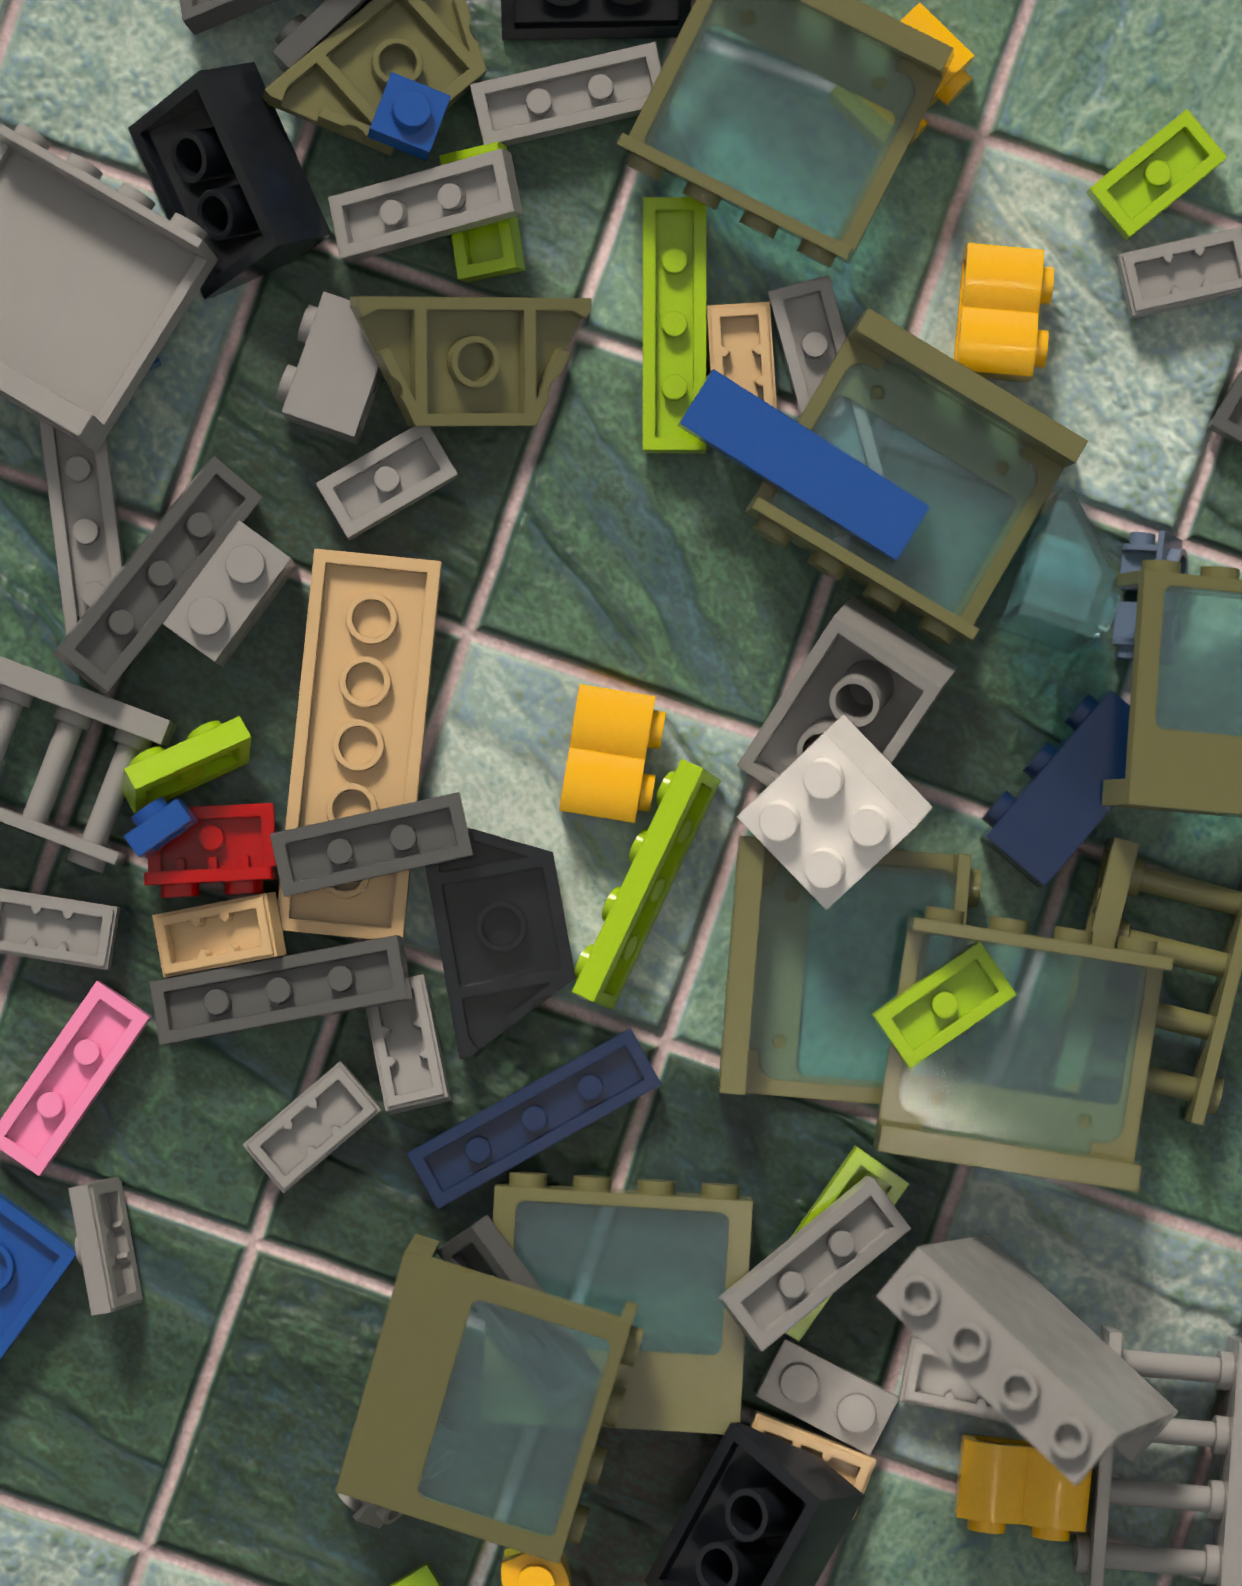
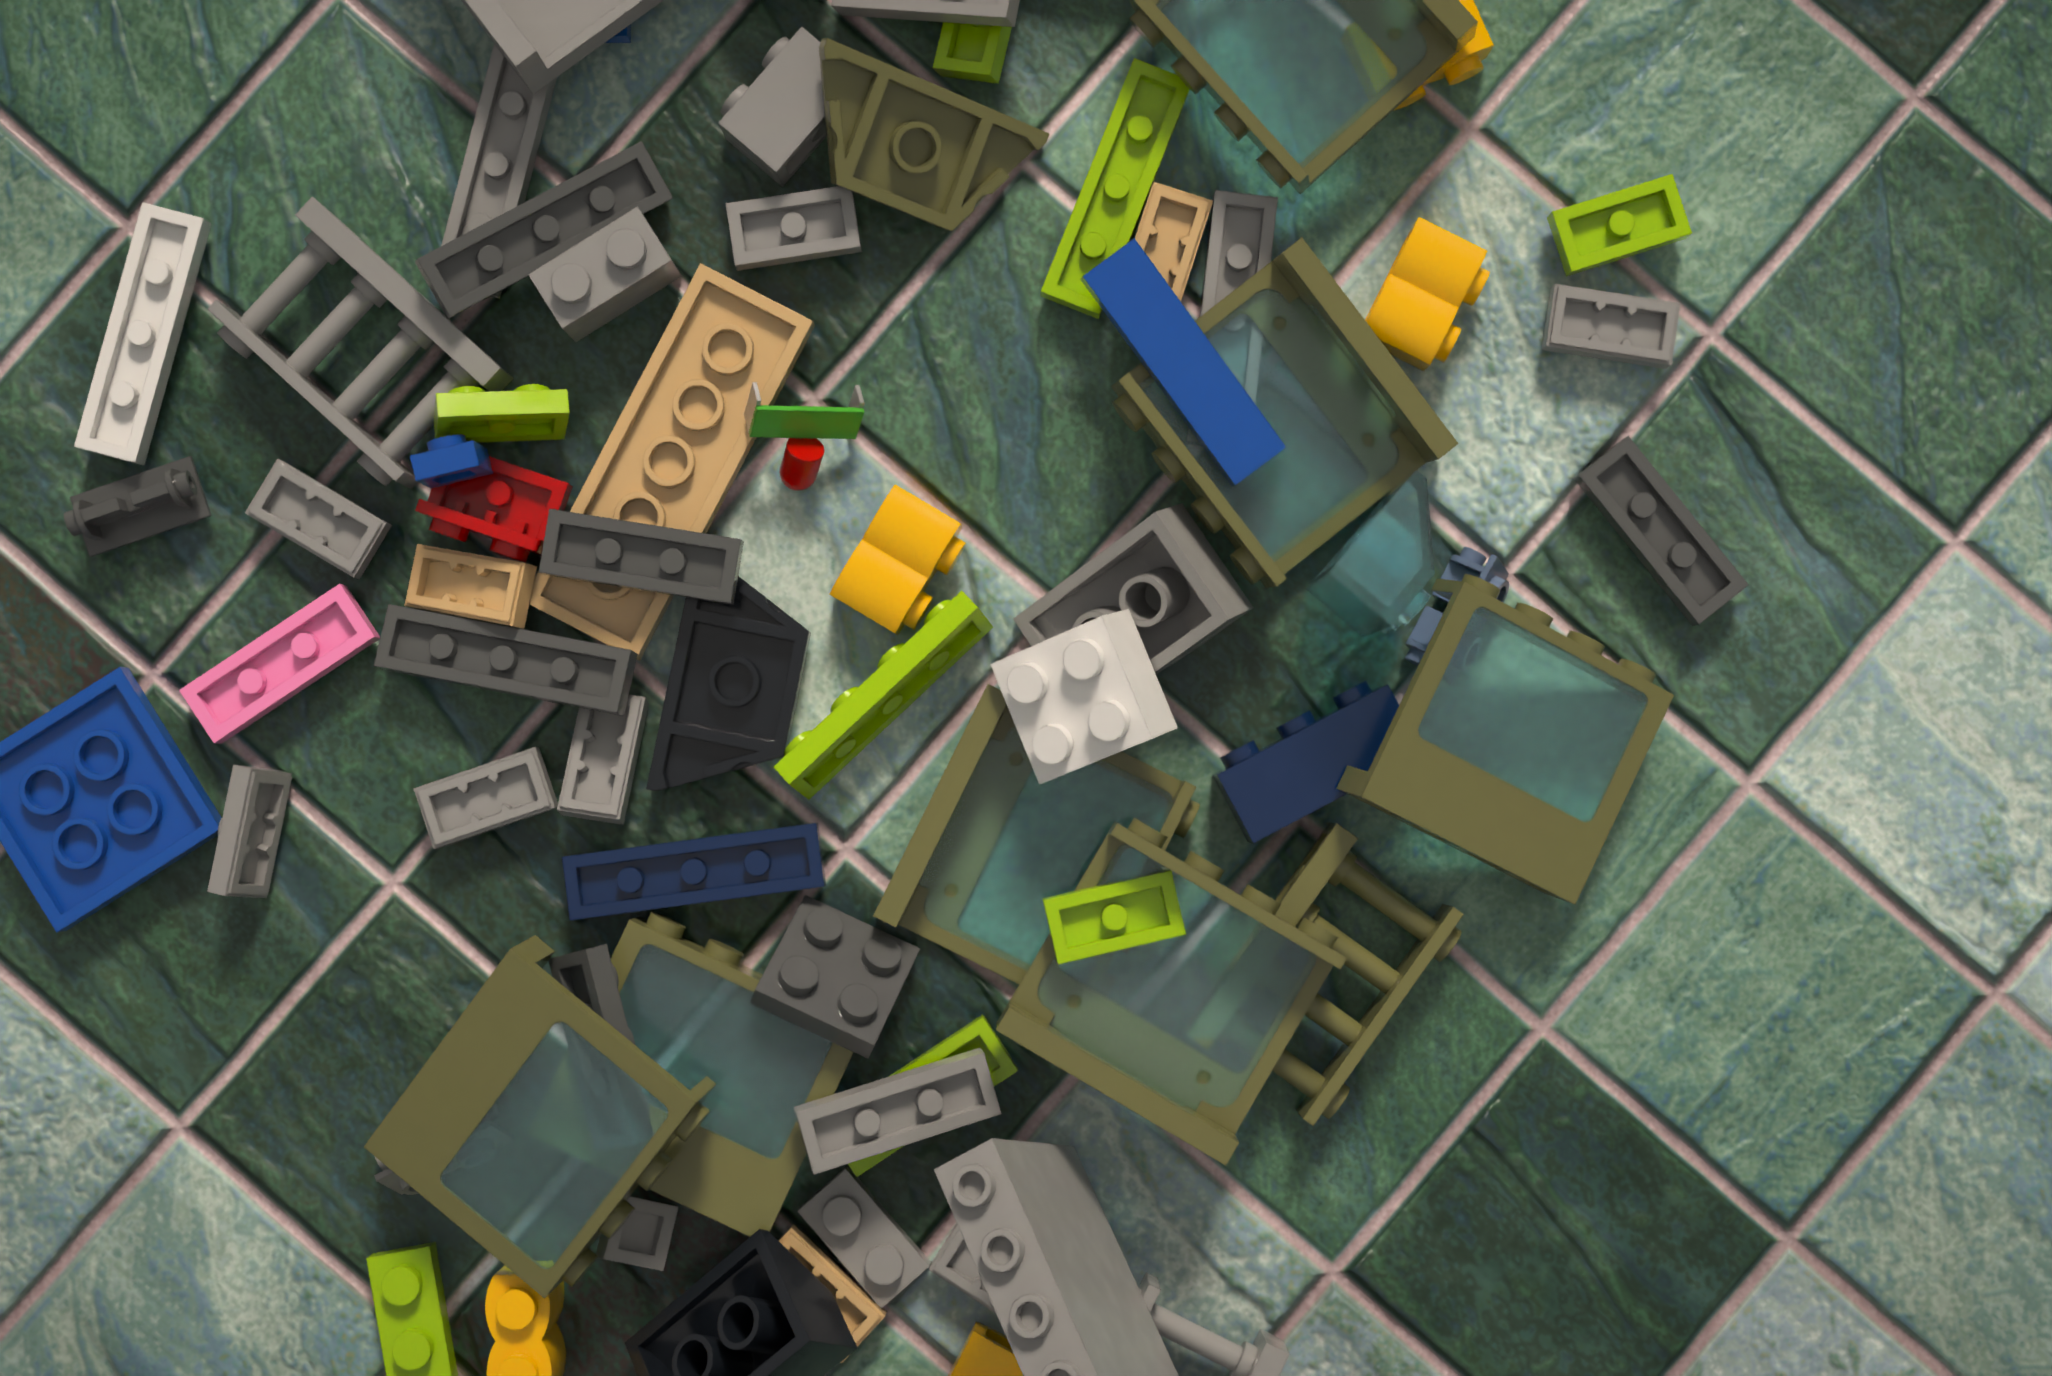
camera: 20 degrees right, 0 degrees up
(471, 665) = (802, 427): none -> piece
(623, 1477) = (643, 1237): none -> light grey plate
(706, 1162) = (835, 976): none -> dark grey plate

